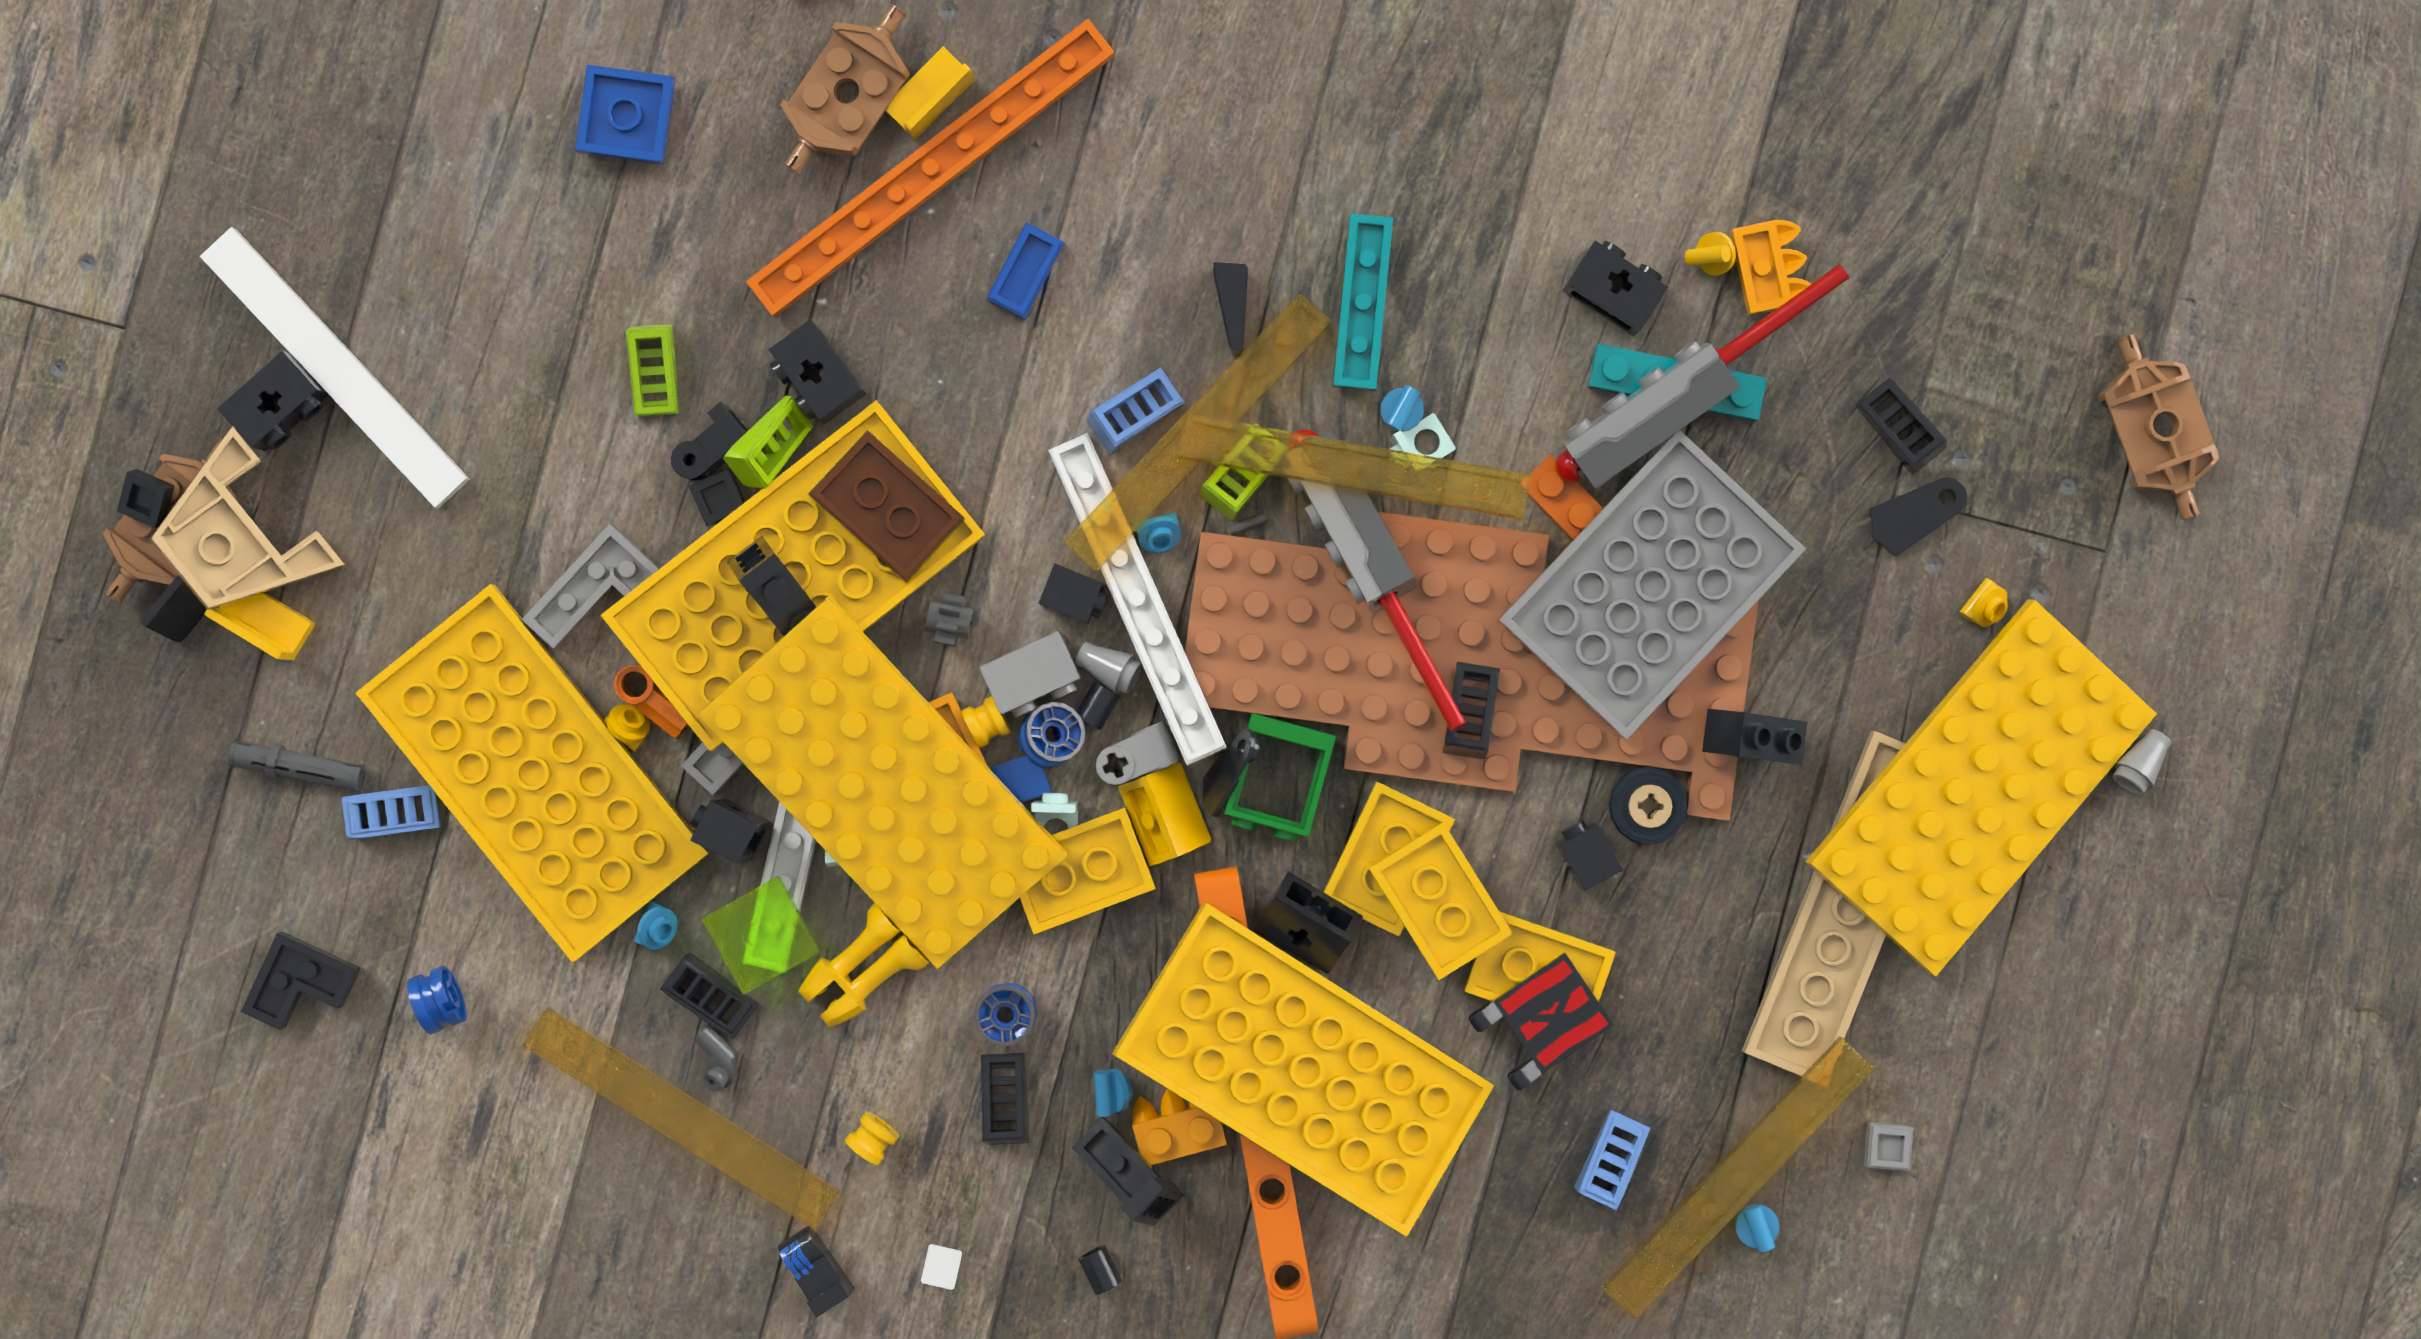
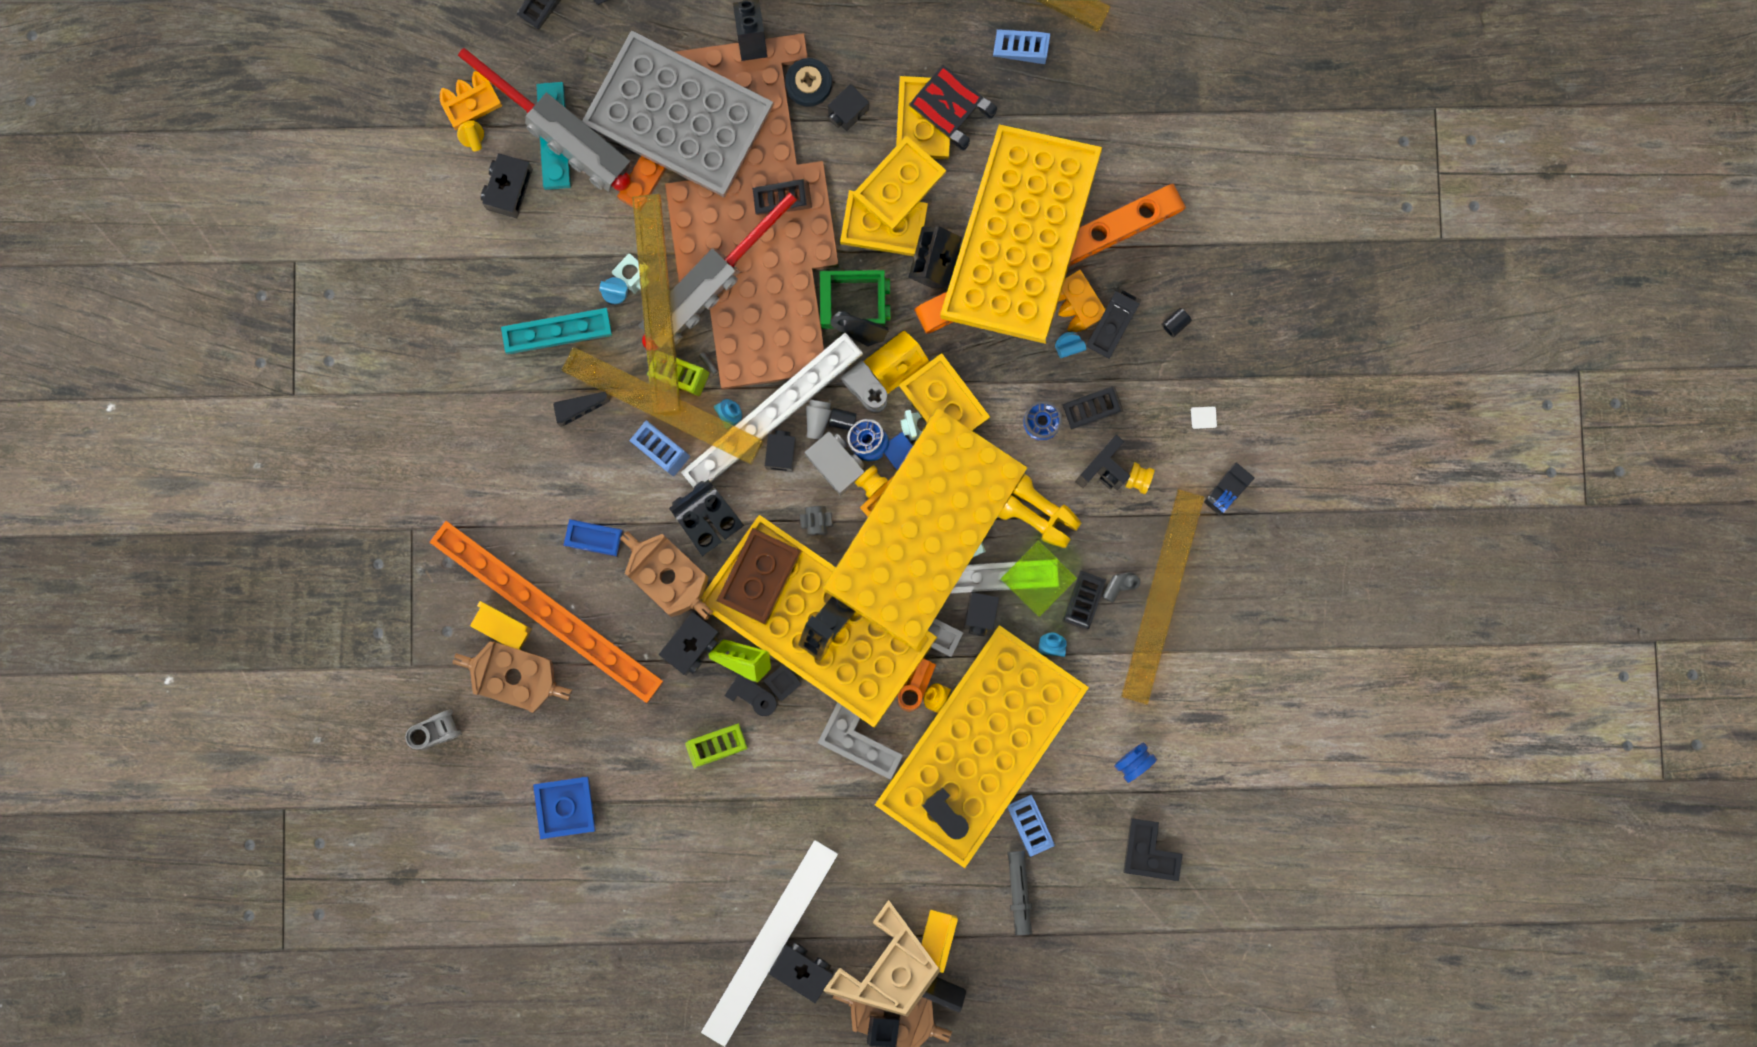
camera: 110 degrees left, 5 degrees down
(426, 690) = (952, 824): none -> black leg
(903, 1083) = (1111, 473): none -> black bracket
(953, 339) = (657, 556): none -> medium nougat plate
(1008, 447) = (699, 506): none -> black hips

